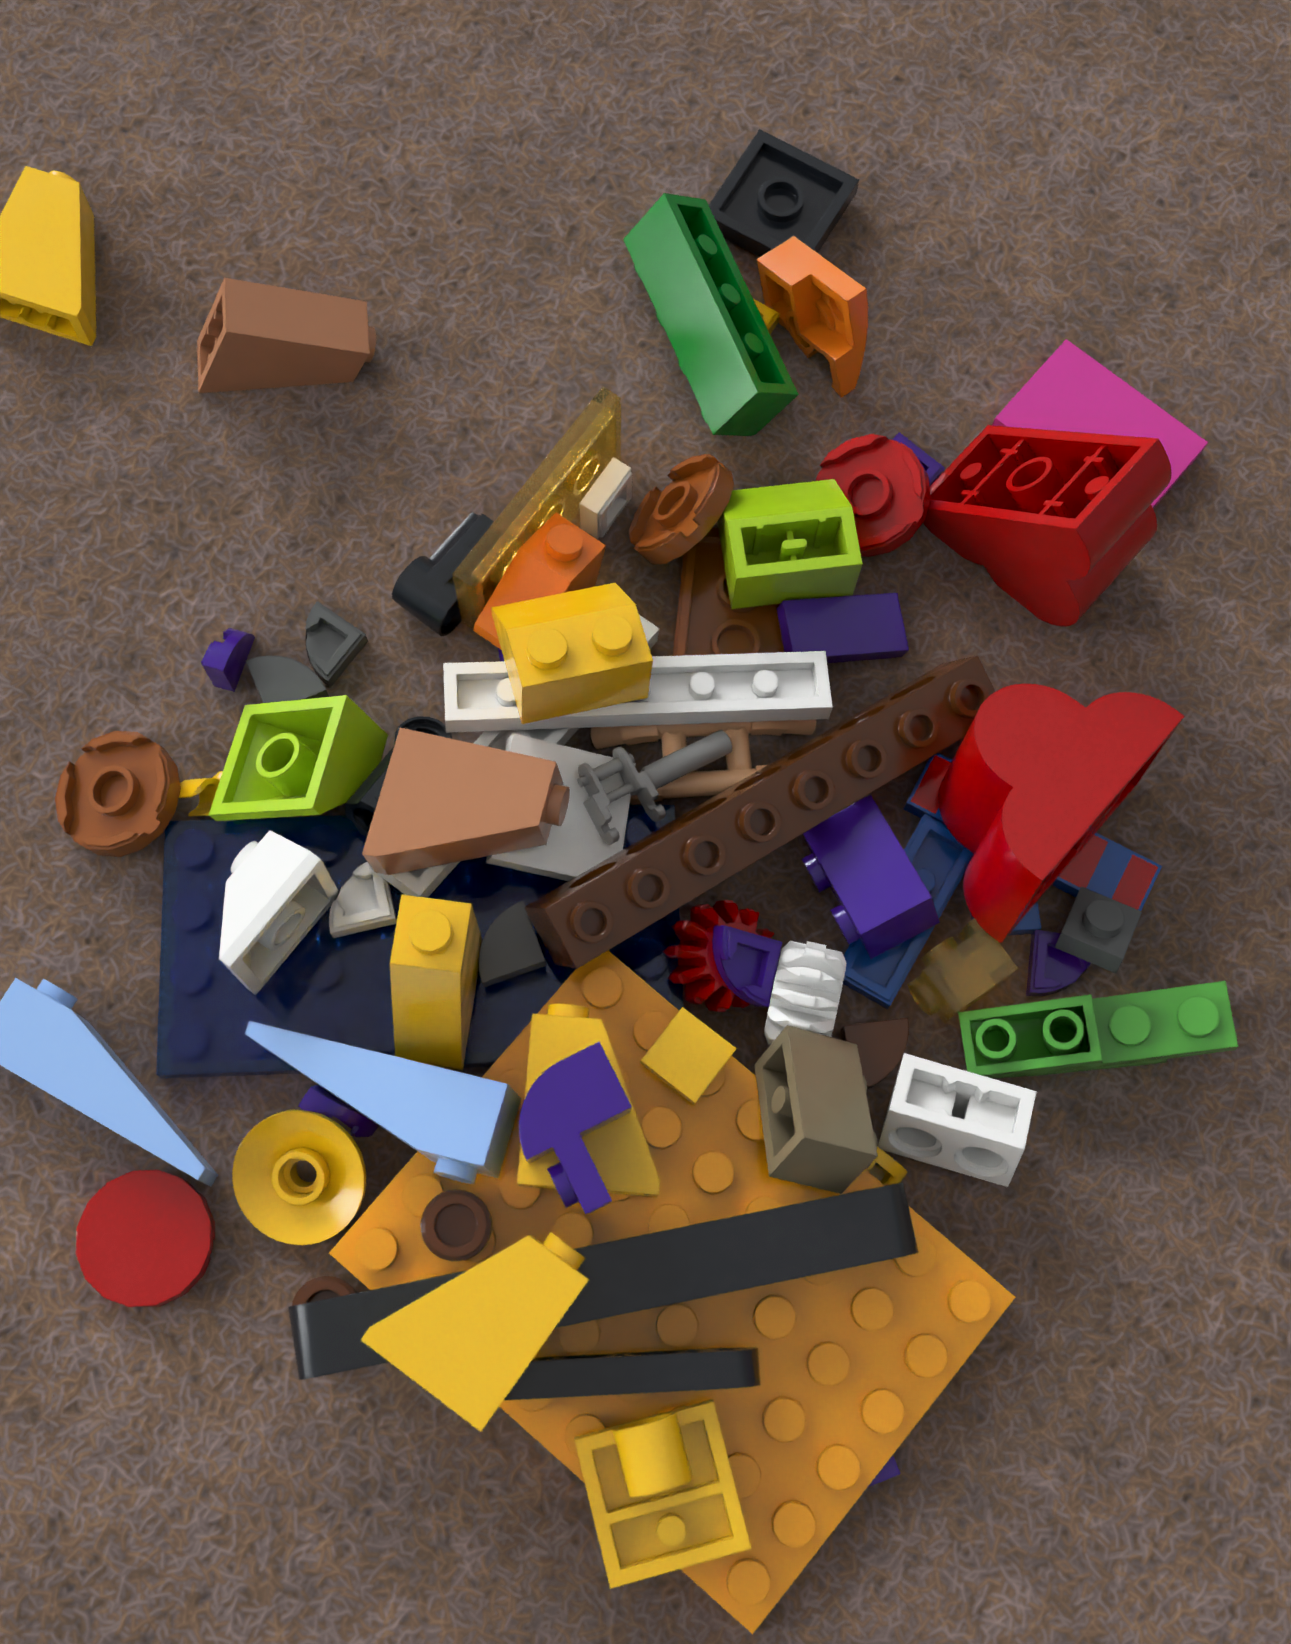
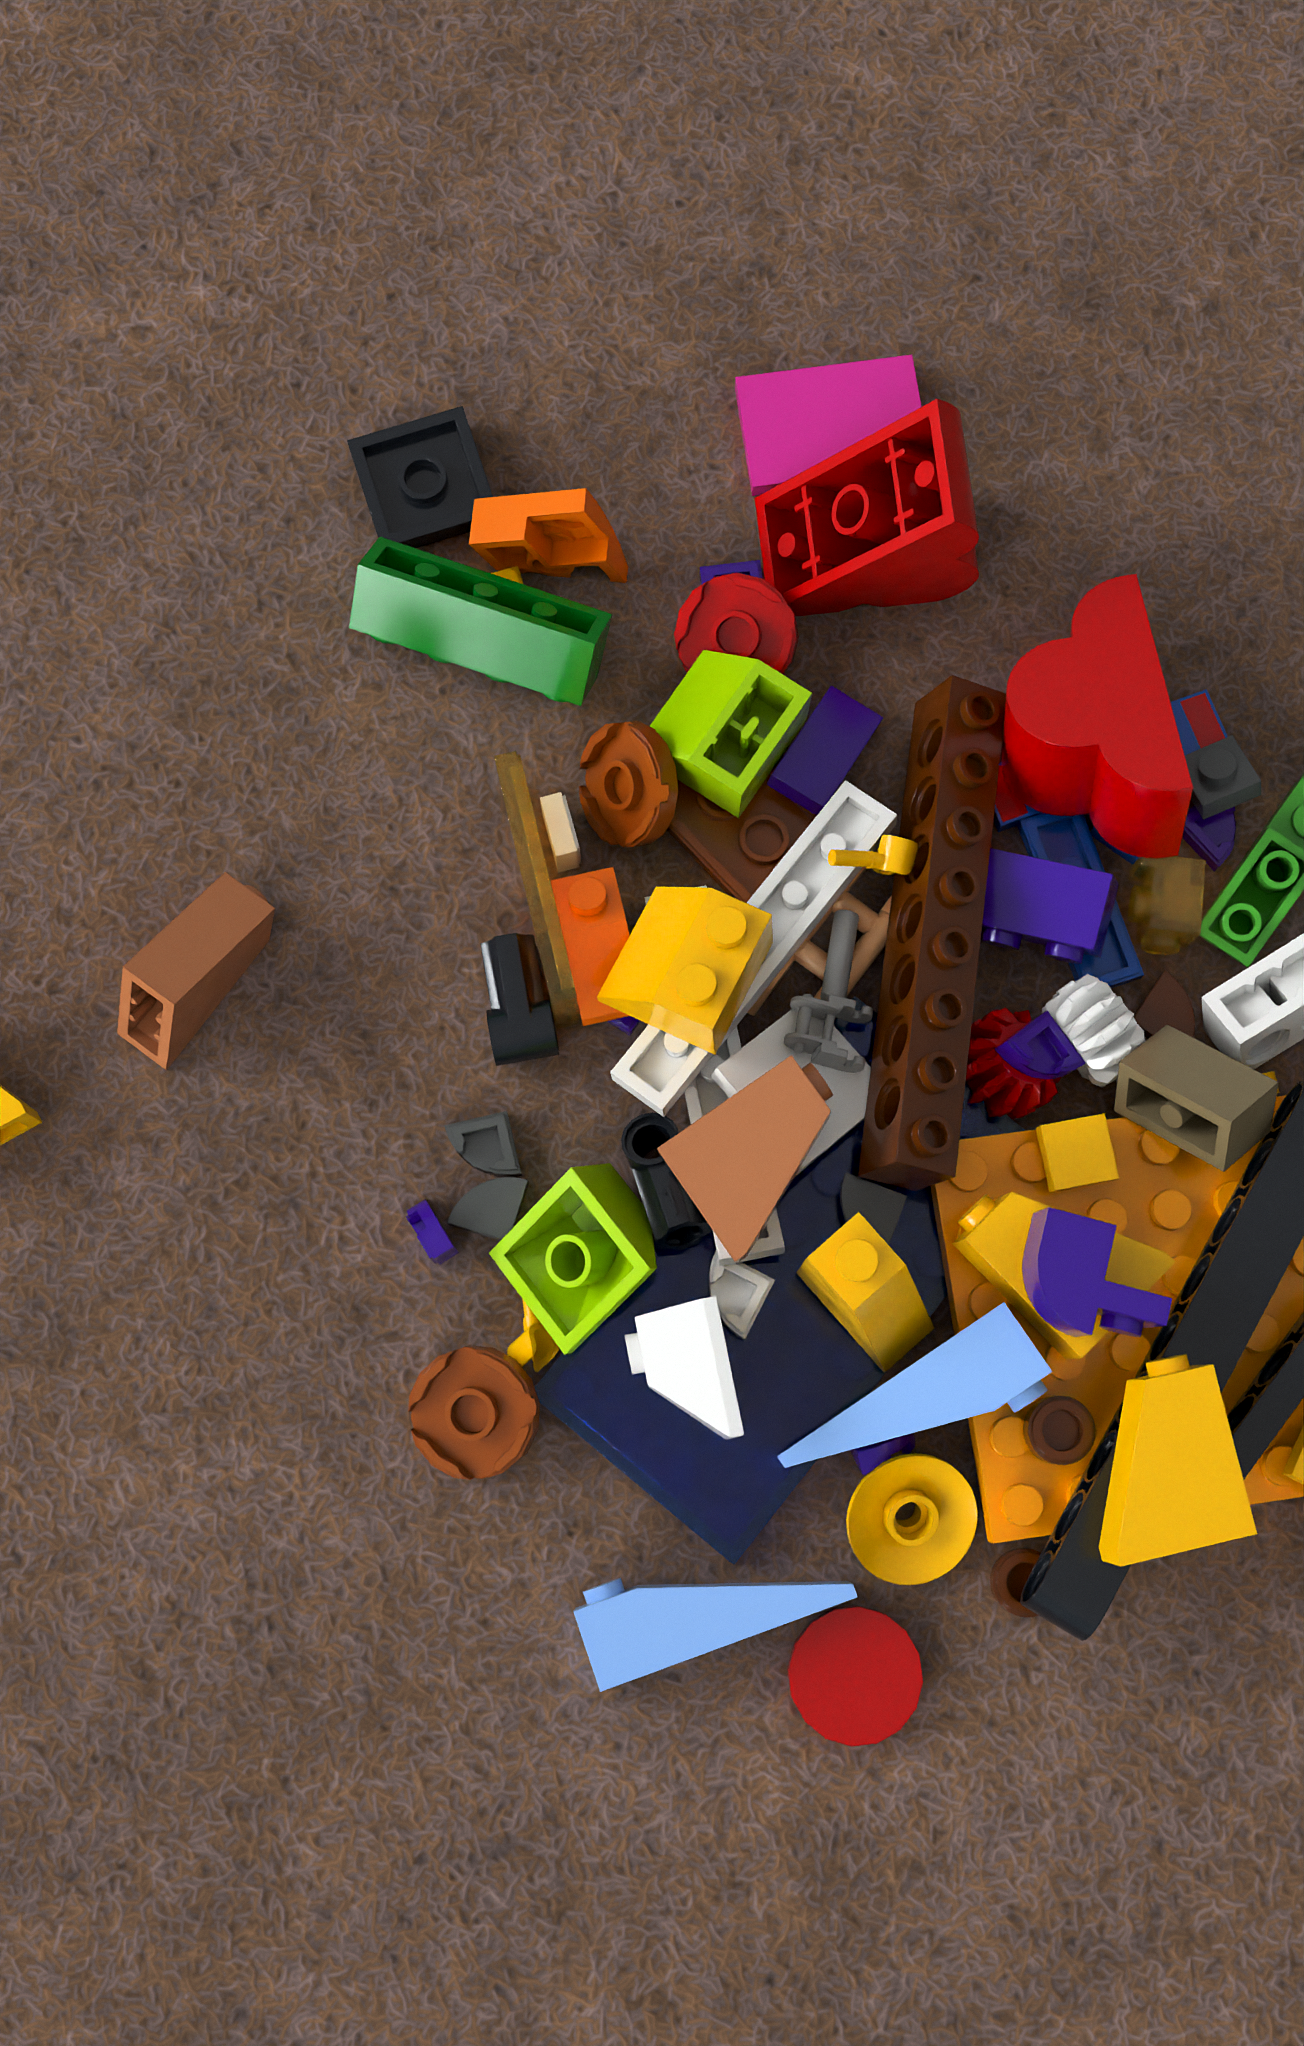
camera: 45 degrees left, 5 degrees up
(796, 731) = (893, 856): none -> yellow hand

